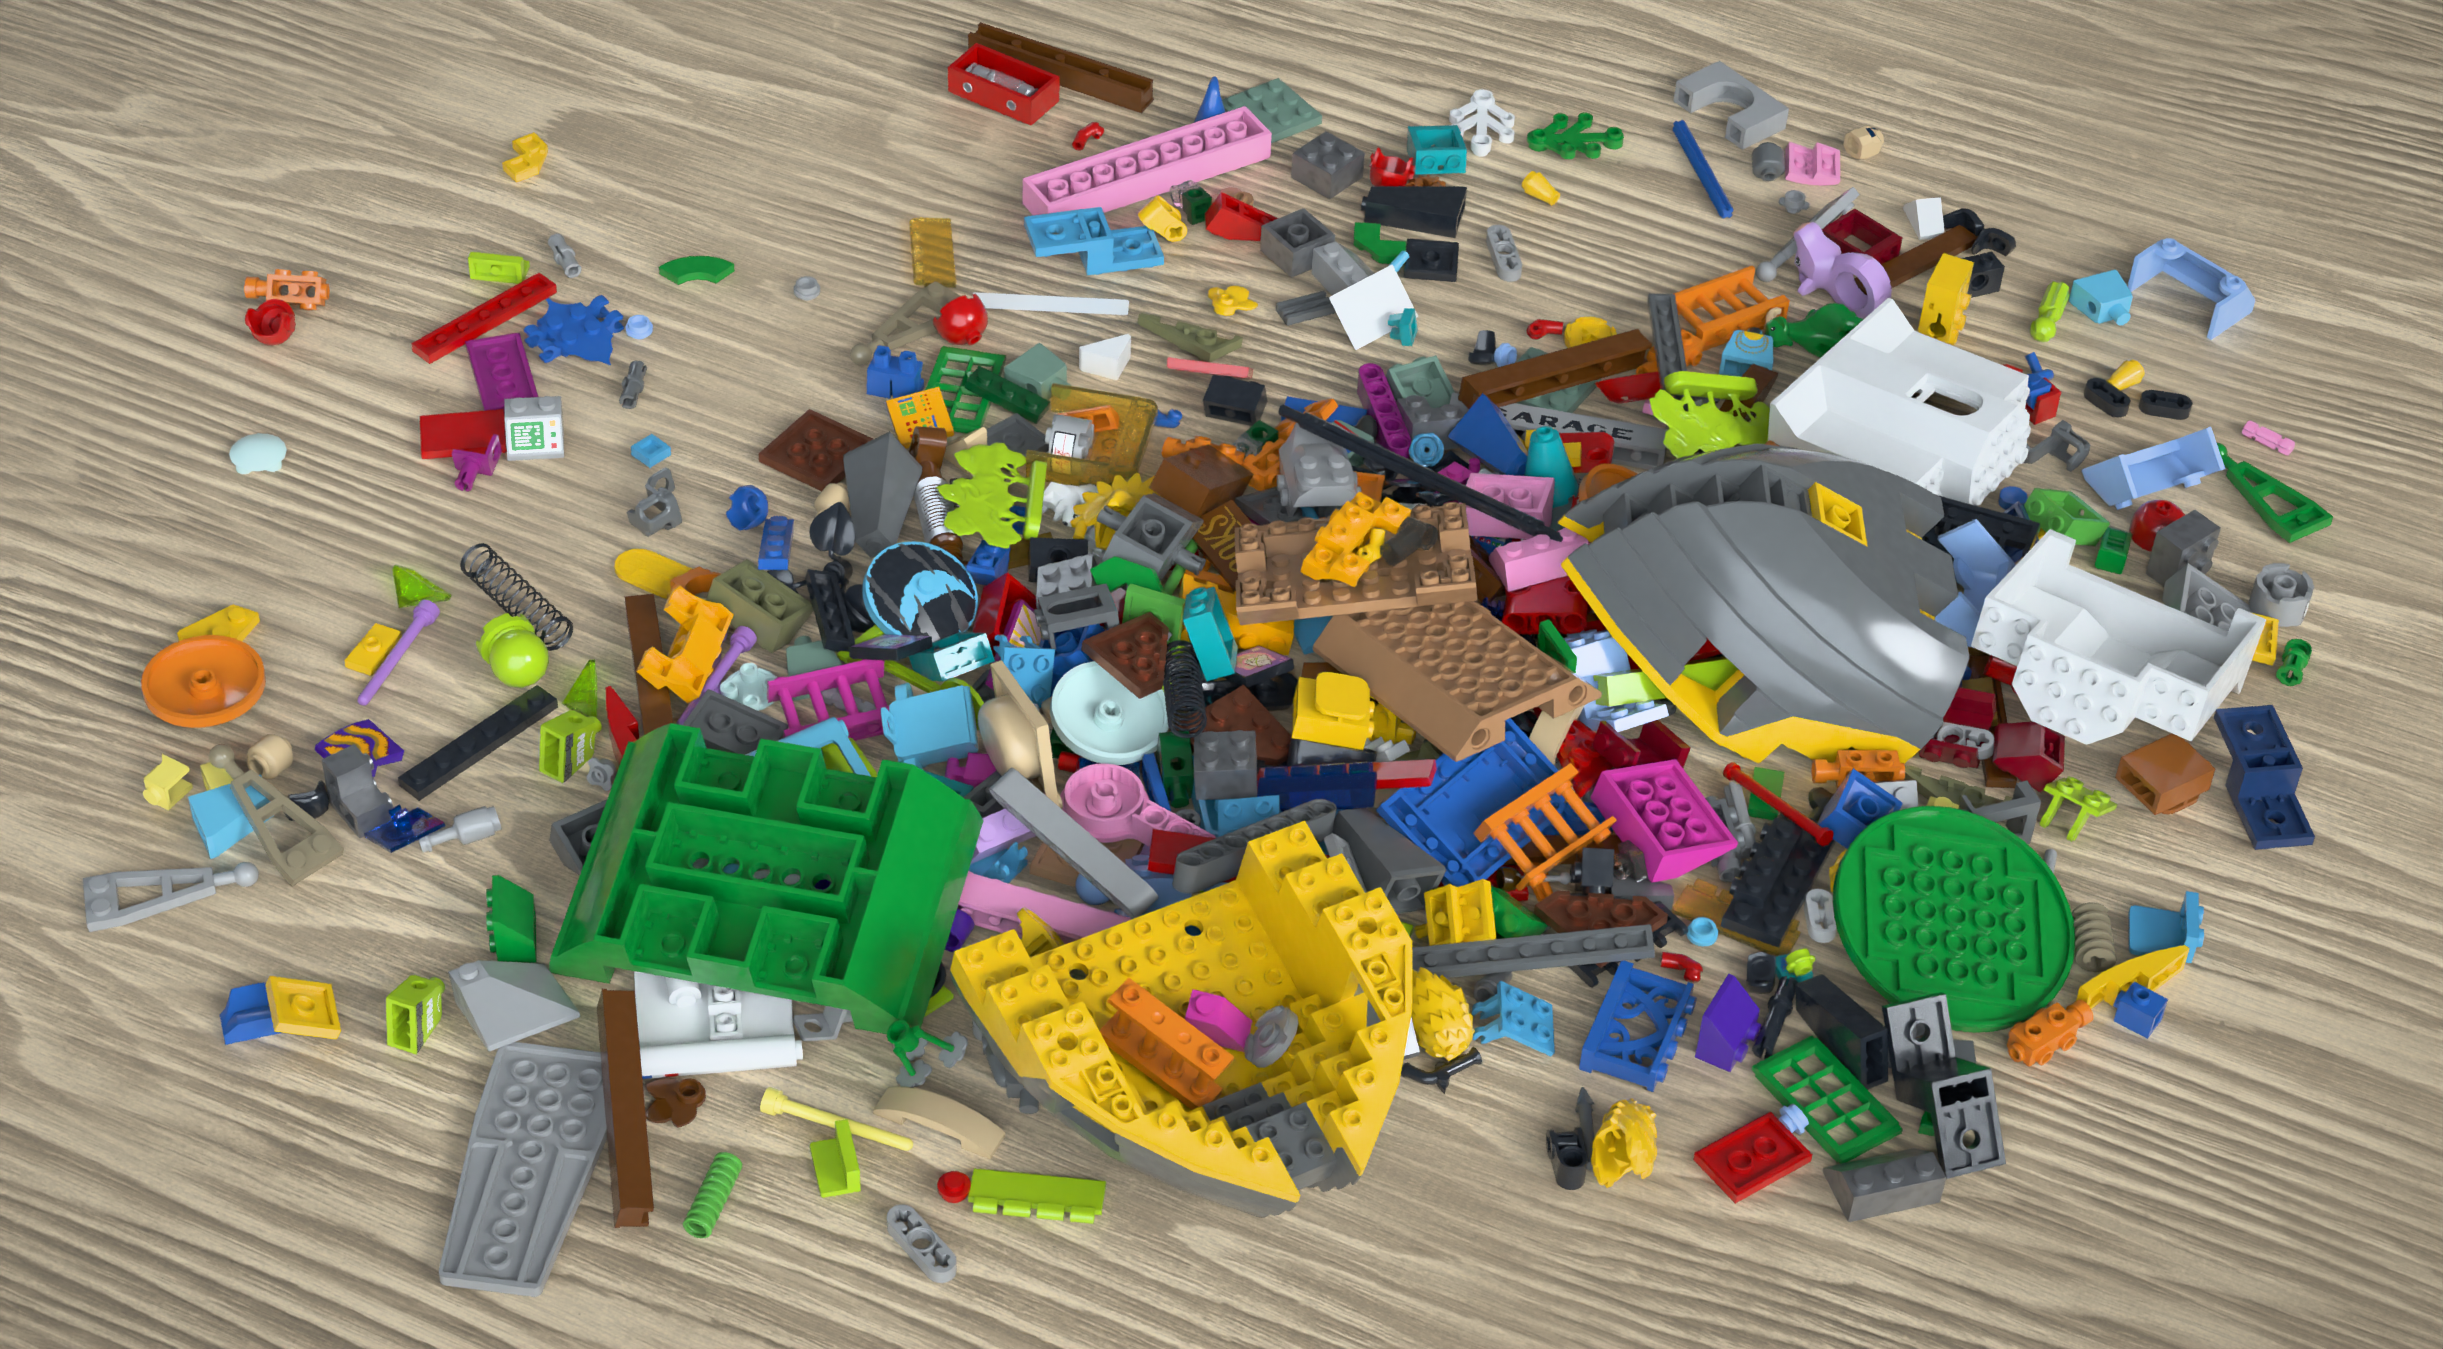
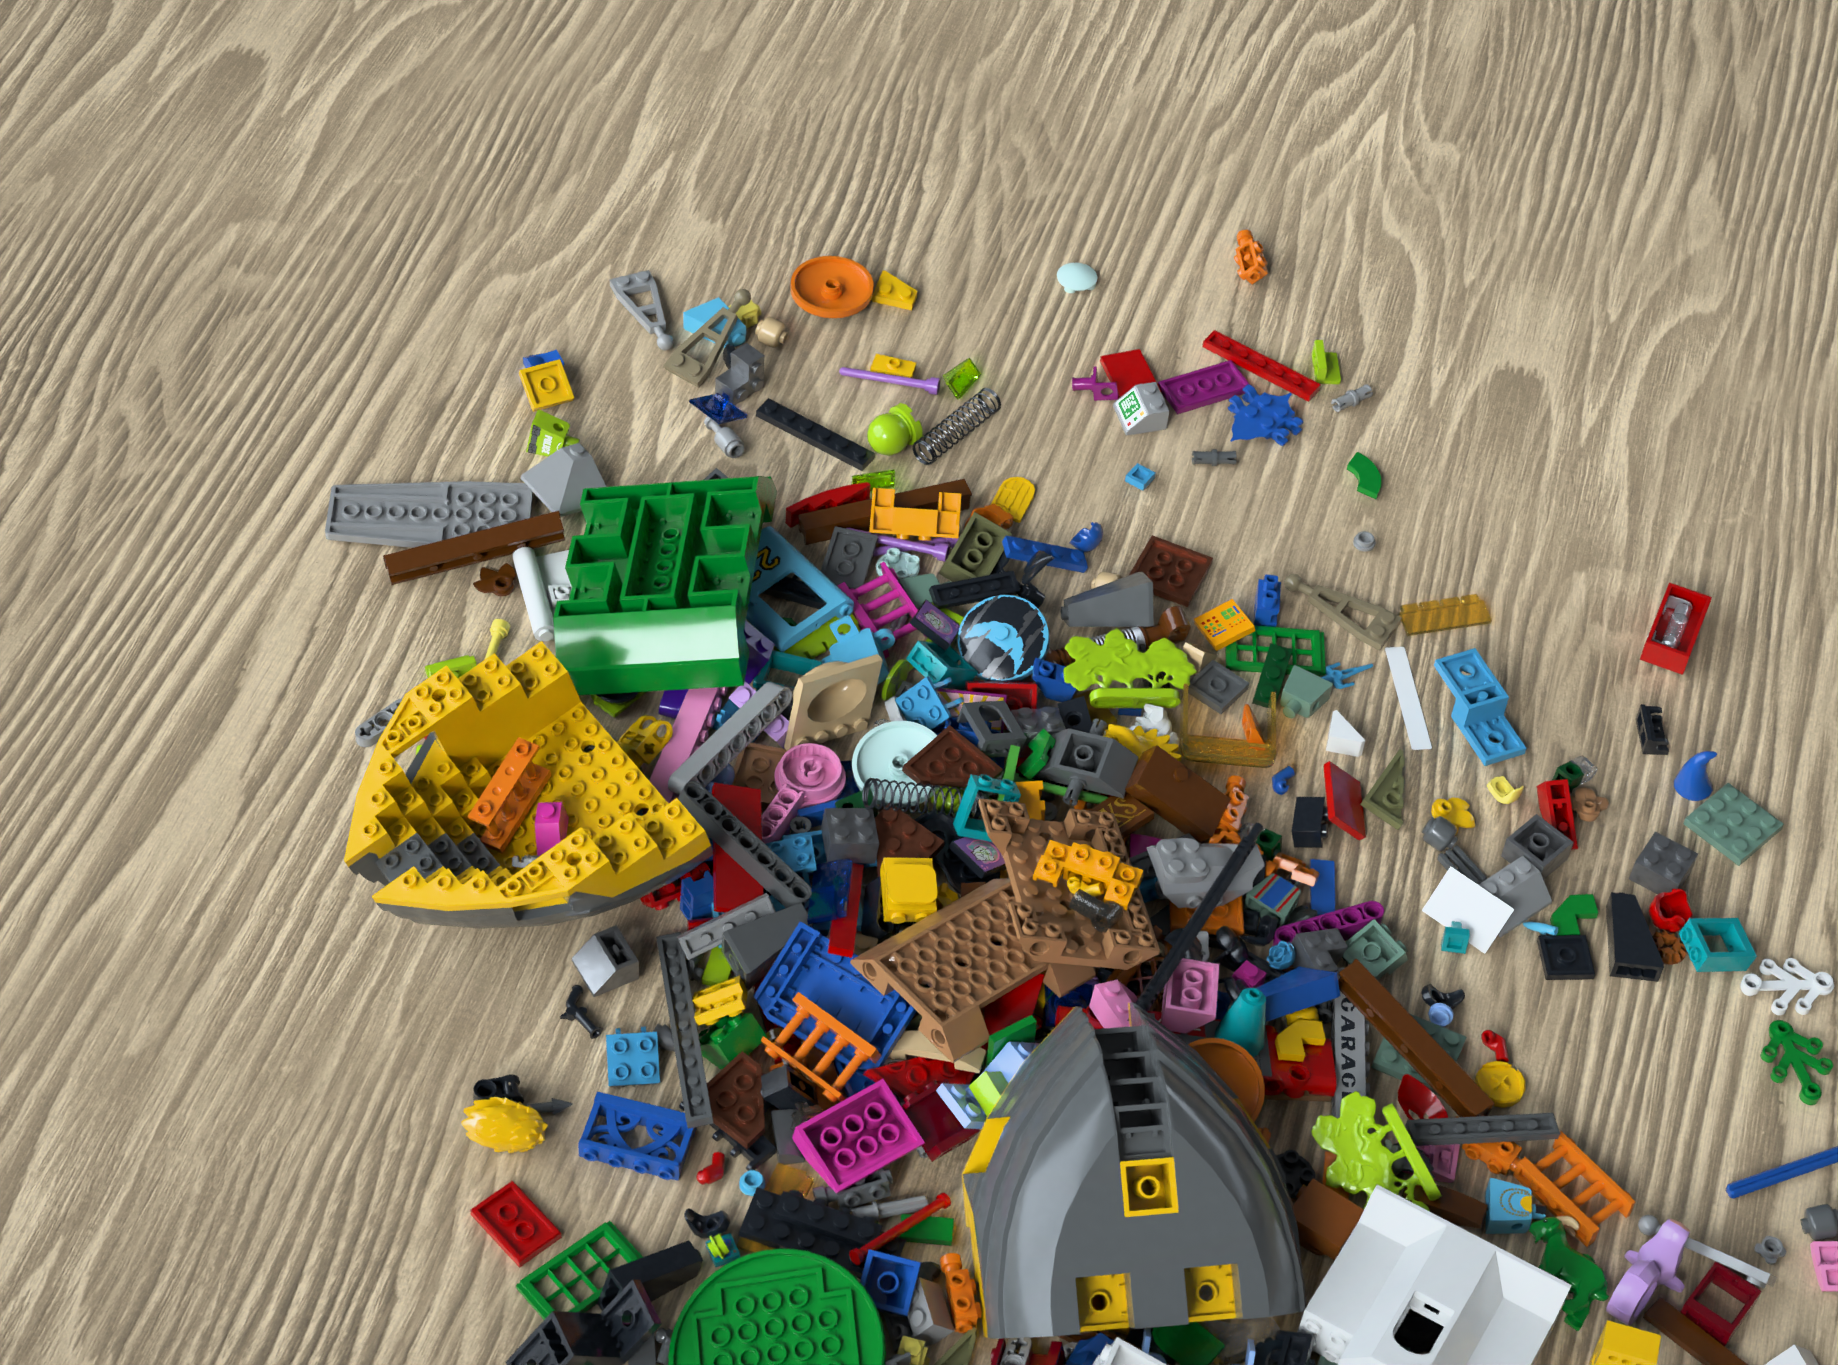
camera: 80 degrees right, 5 degrees up
(165, 783) = (735, 283): light yellow window -> none
(271, 322) = (1209, 254): red cap -> none
(368, 740) = (791, 376): slope -> none
(511, 921) = (634, 464): green slope -> none
(532, 156) = (1456, 362): yellow tile -> none
(567, 744) = (812, 472): lime torso -> none
(601, 773) = (792, 497): light grey plate -> none
(639, 327) = (1282, 451): light blue plate -> none
(661, 499) = (1075, 486): dark grey piece -> none
(712, 1195) = (413, 608): bright green piece -> none
(962, 320) = (1347, 636): red cylinder -> none
(1011, 349) = (1337, 676): none -> dark azure piece
(1070, 436) = (1212, 713): light grey brick -> none
(1075, 71) = (1725, 670): reddish brown tile -> none
(1083, 134) = (1640, 695): red arm -> none
(1125, 135) = (1651, 731): none -> black hinge
(1151, 165) = (1602, 737): bright pink brick -> none
(1163, 219) = (1534, 757): yellow piece -> none
(1208, 255) = (1503, 790): none -> light yellow hair
(1261, 310) = (1440, 833): none -> dark grey head
(1440, 1015) = (614, 999): yellow head -> none
(1507, 245) = (1588, 1018): light grey beam -> none
(1539, 187) = (1702, 1032): yellow cone -> none
(1728, 1026) = (638, 1192): dark purple slope -> none
(1779, 1008) = (661, 1235): black pin -> none
(1793, 1119) = (550, 1246): light blue plate -> none
(1886, 1183) = (494, 1311): flat silver slope -> none

